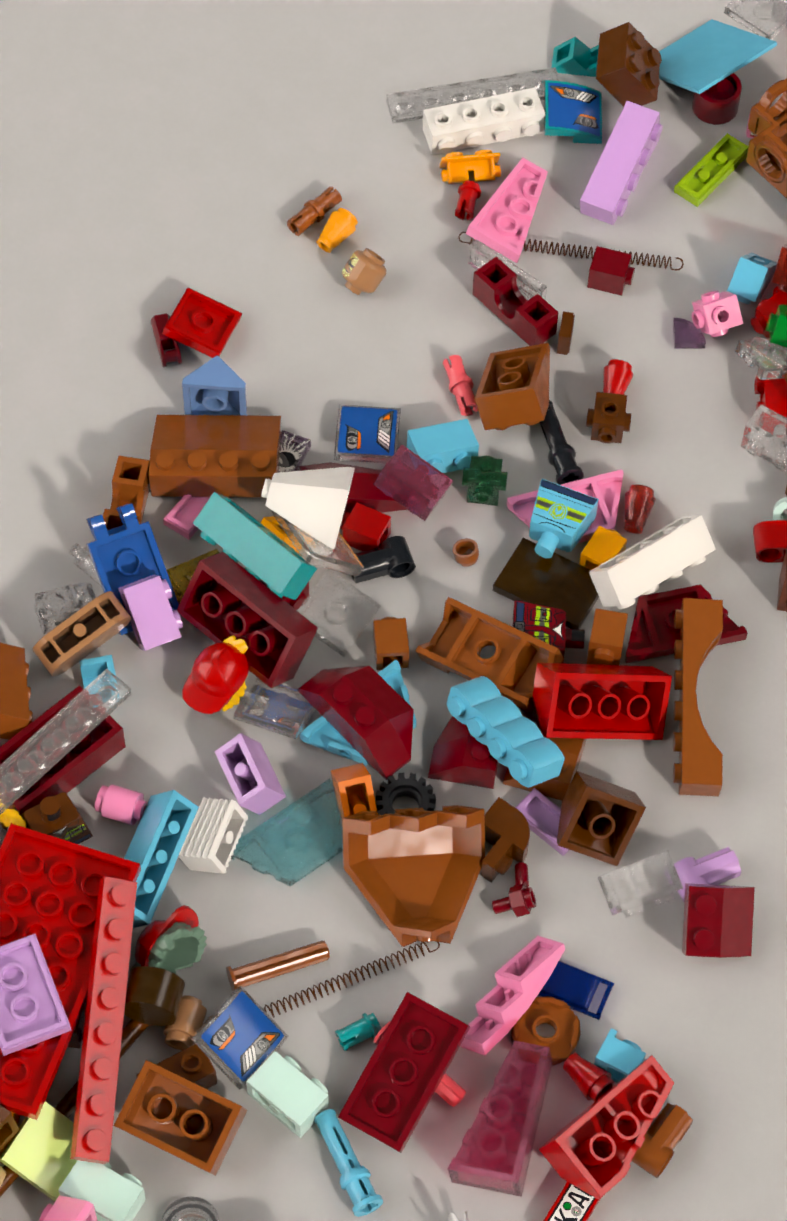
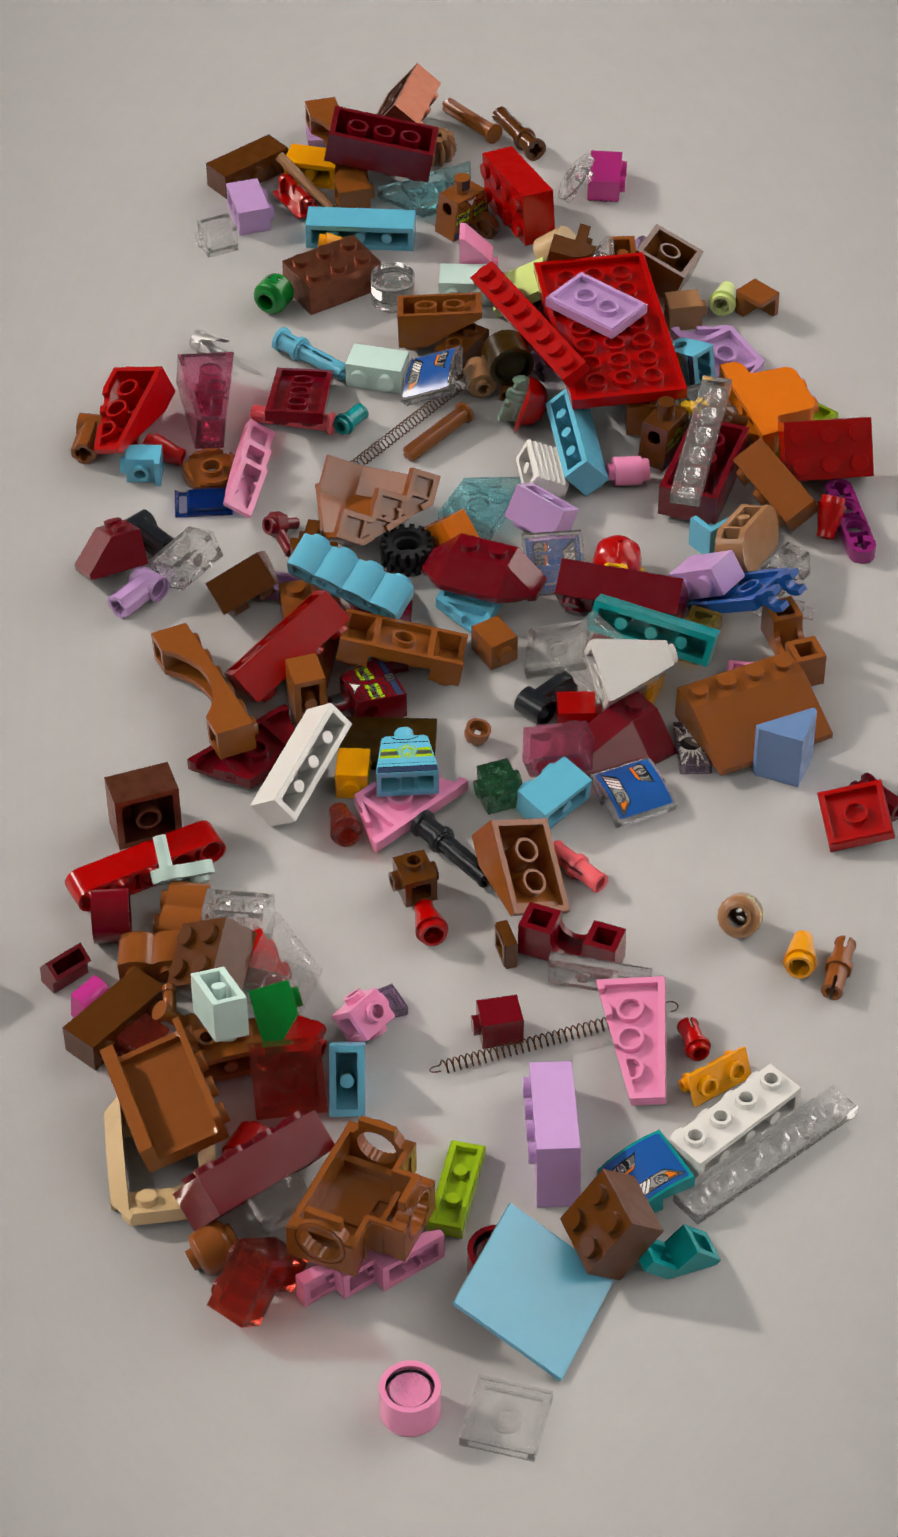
camera: 155 degrees right, 15 degrees down
(663, 958) = (153, 536): none -> black piece

